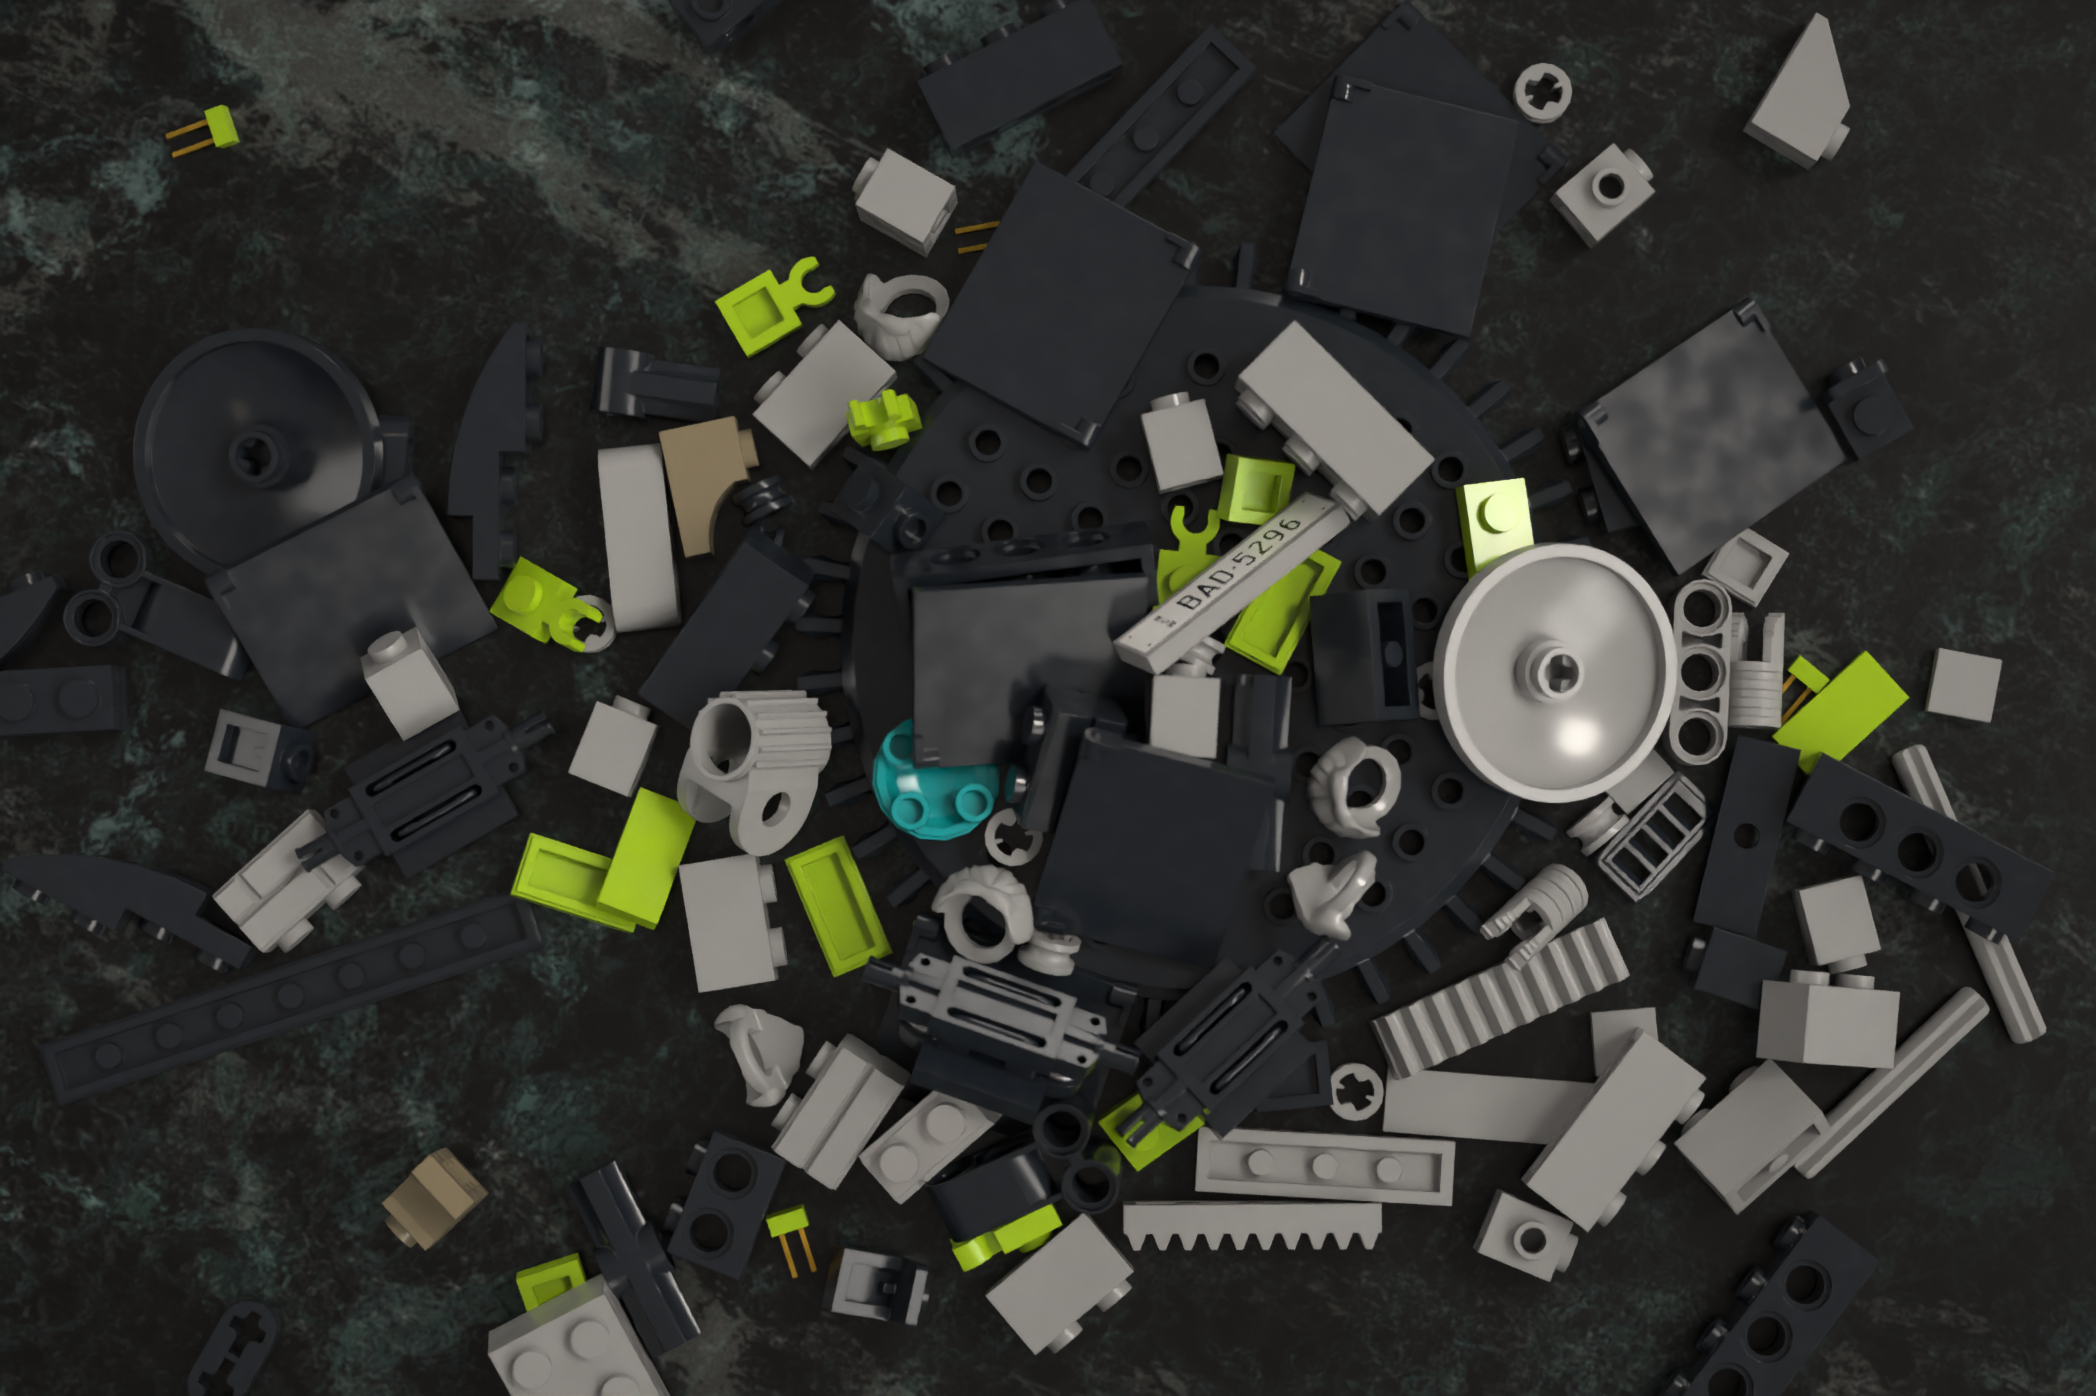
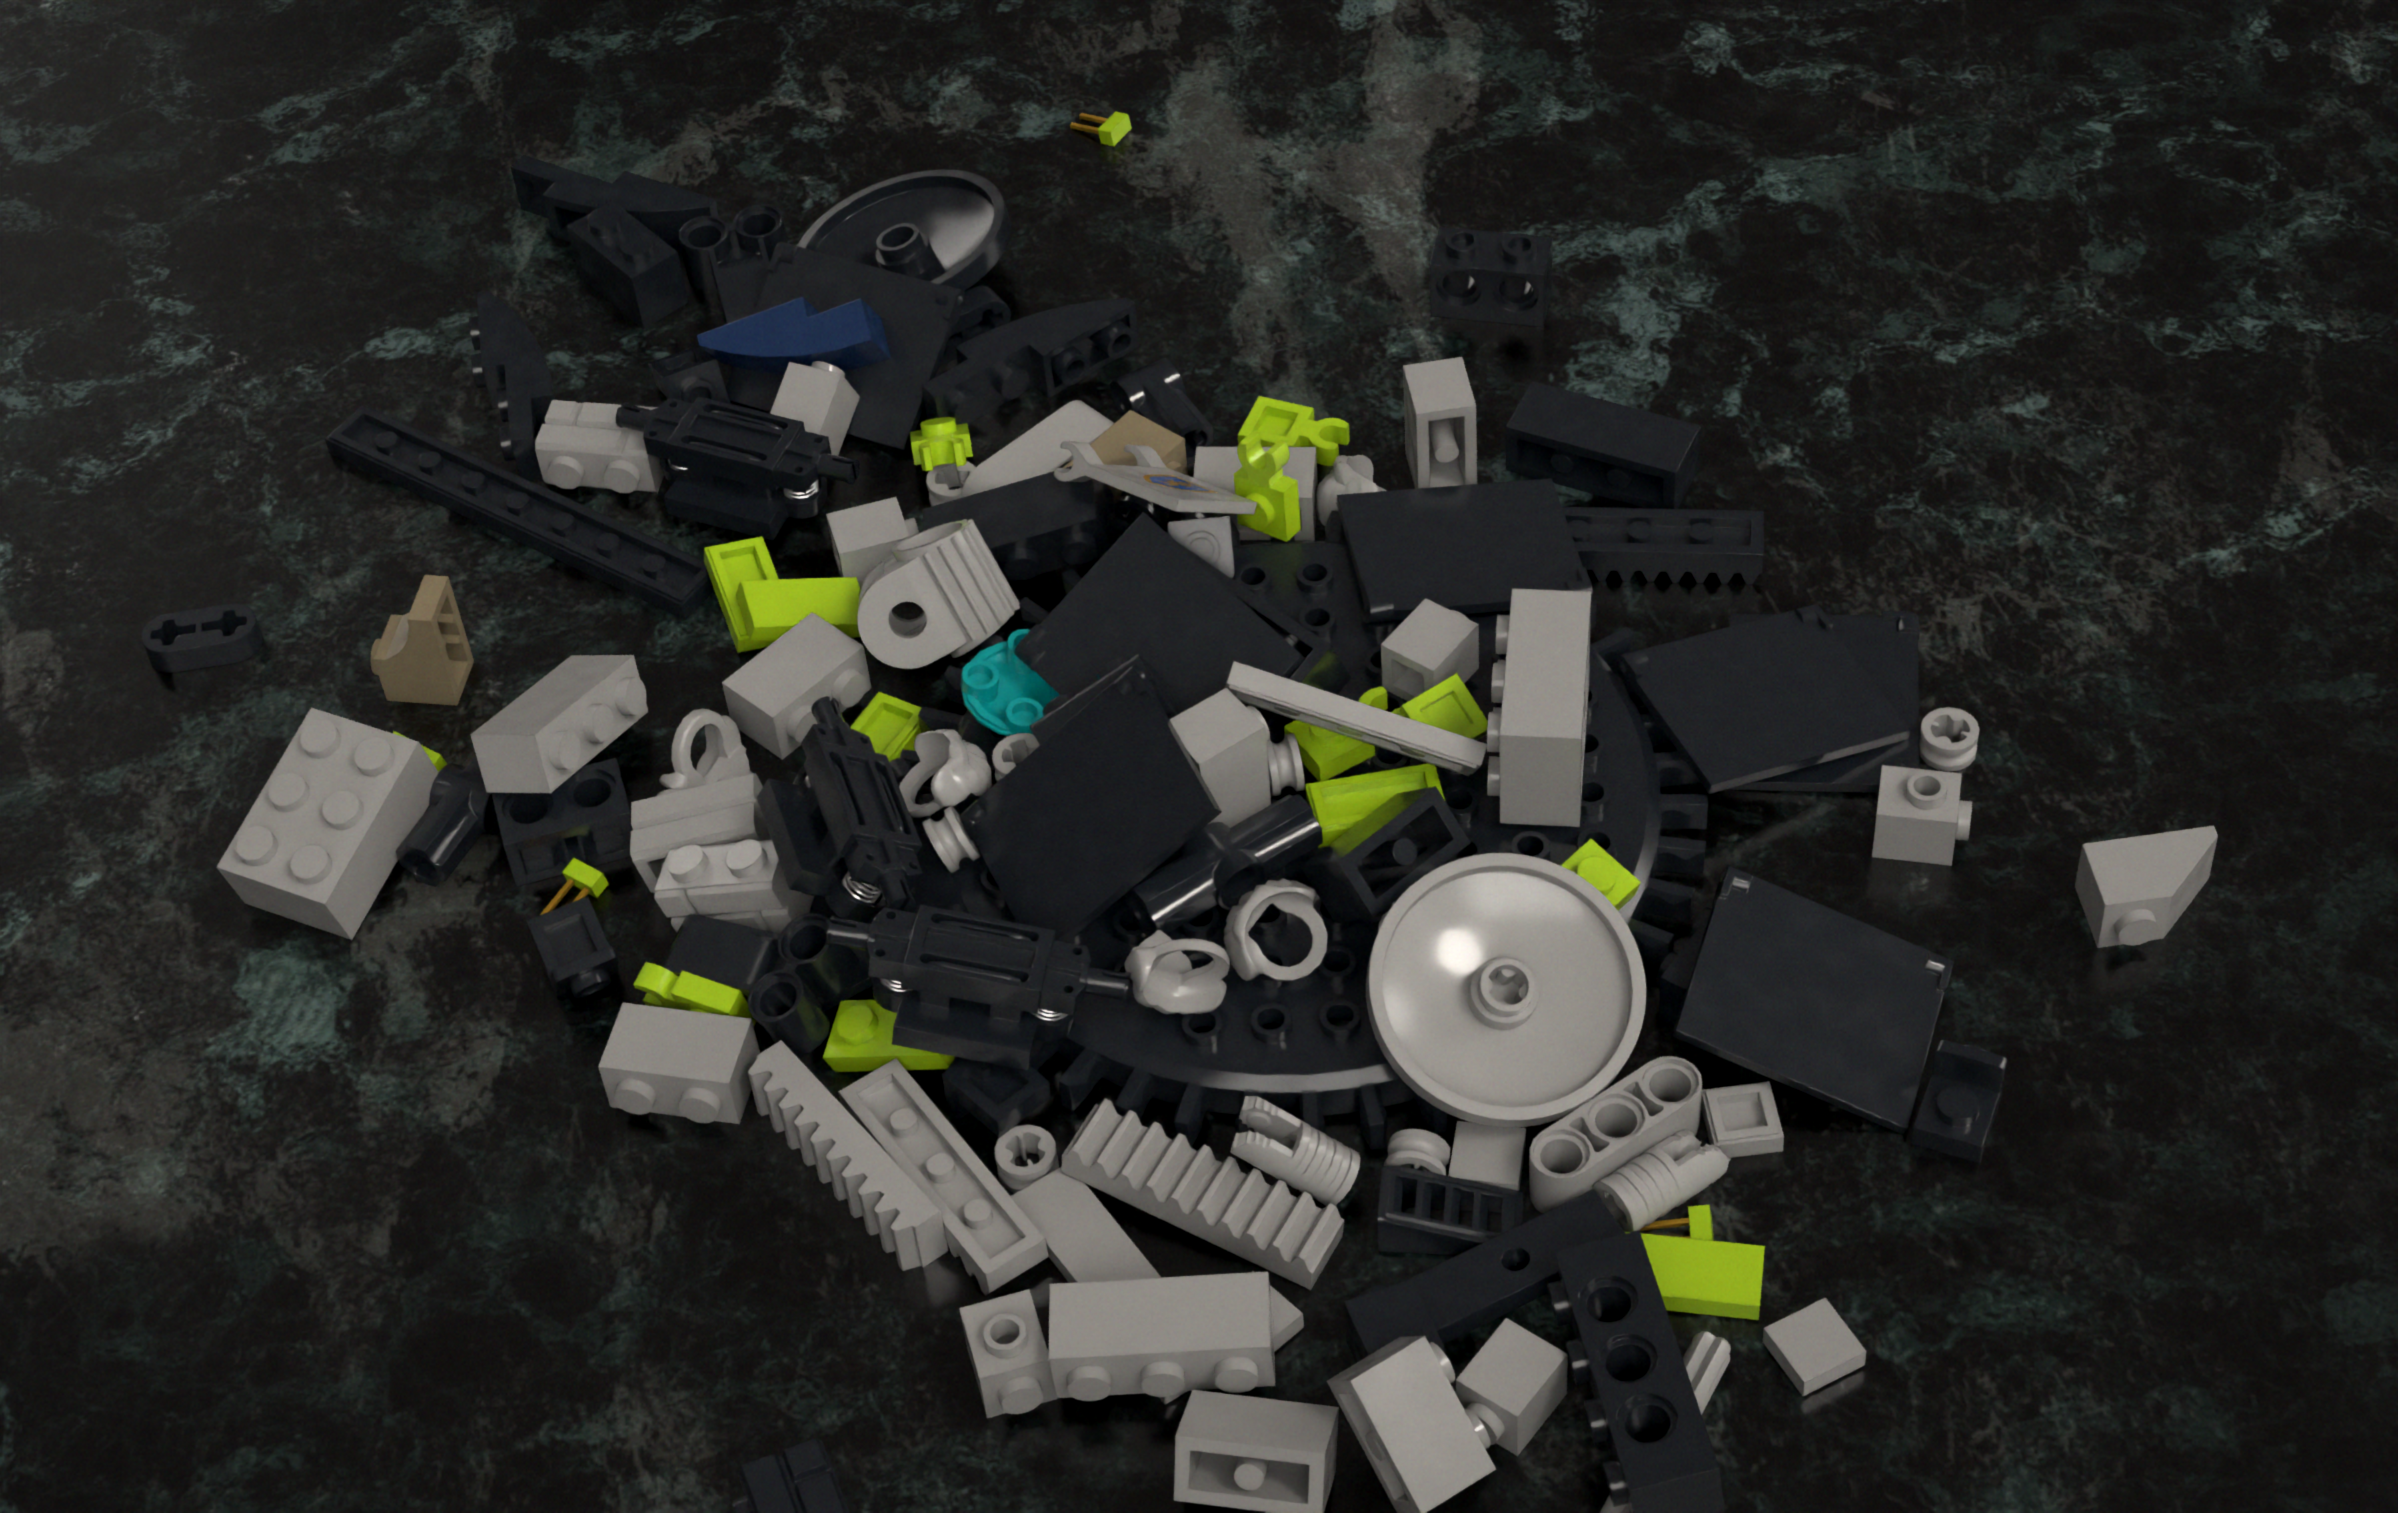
camera: 50 degrees right, 40 degrees down
(334, 646) = (800, 334): none -> dark blue slope
(643, 1151) = (559, 724): none -> light grey brick
(821, 511) = (1152, 481): none -> light grey flag

